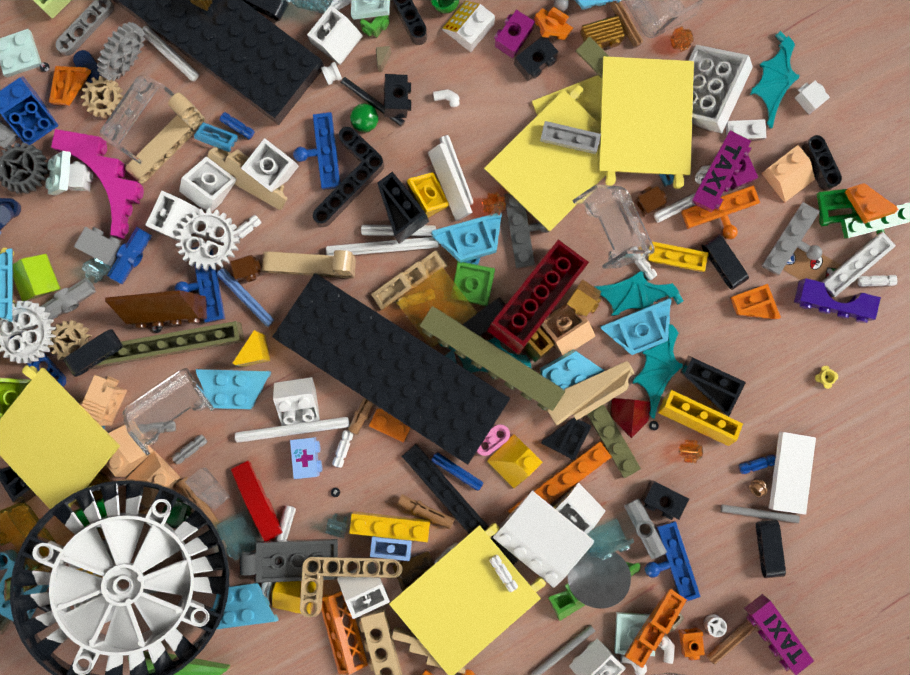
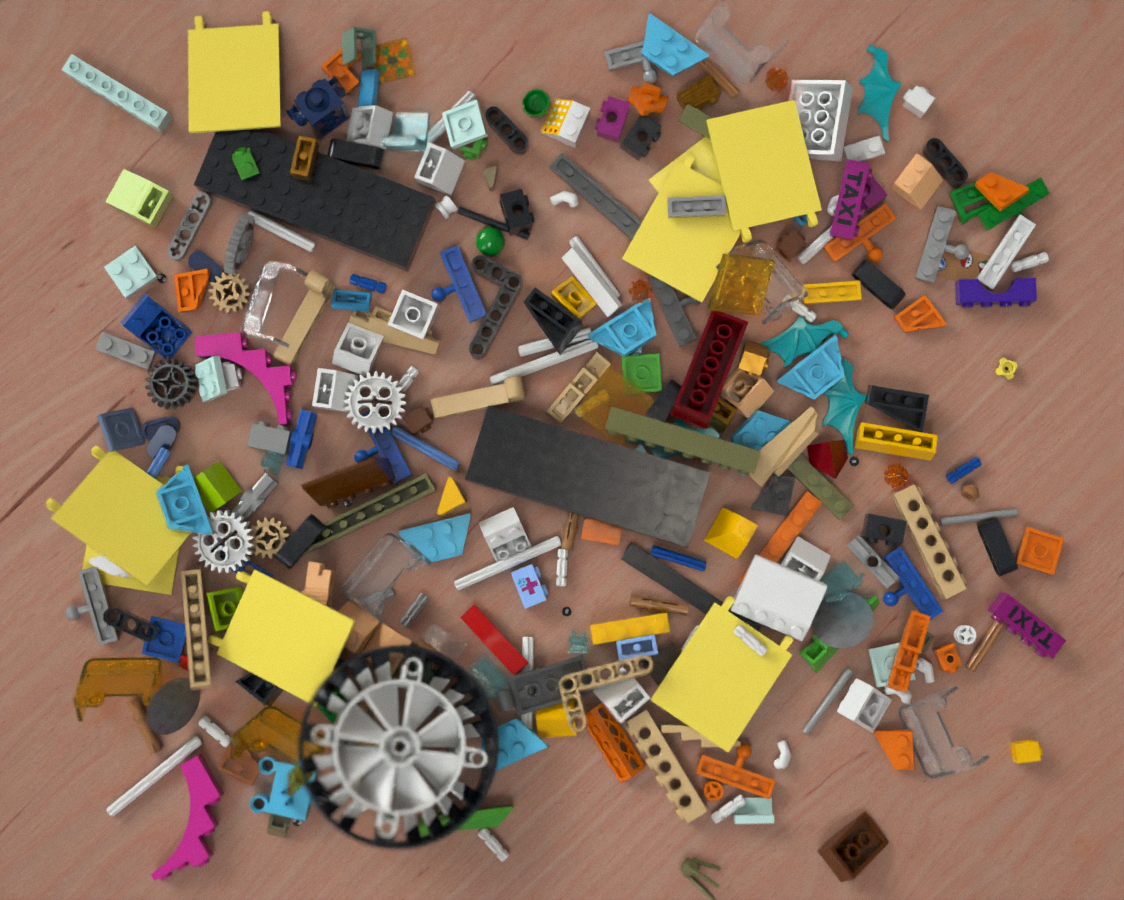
camera: 15 degrees left, 0 degrees up
(477, 101) = (596, 196): none -> dark grey plate
(493, 441) = (704, 519): bright pink plate -> none
(592, 223) = (741, 284): none -> clear yellow plate
(721, 572) = (945, 588): none -> tan brick
(792, 473) = (998, 469): white tile -> none
(810, 564) = (1039, 550): none -> orange plate

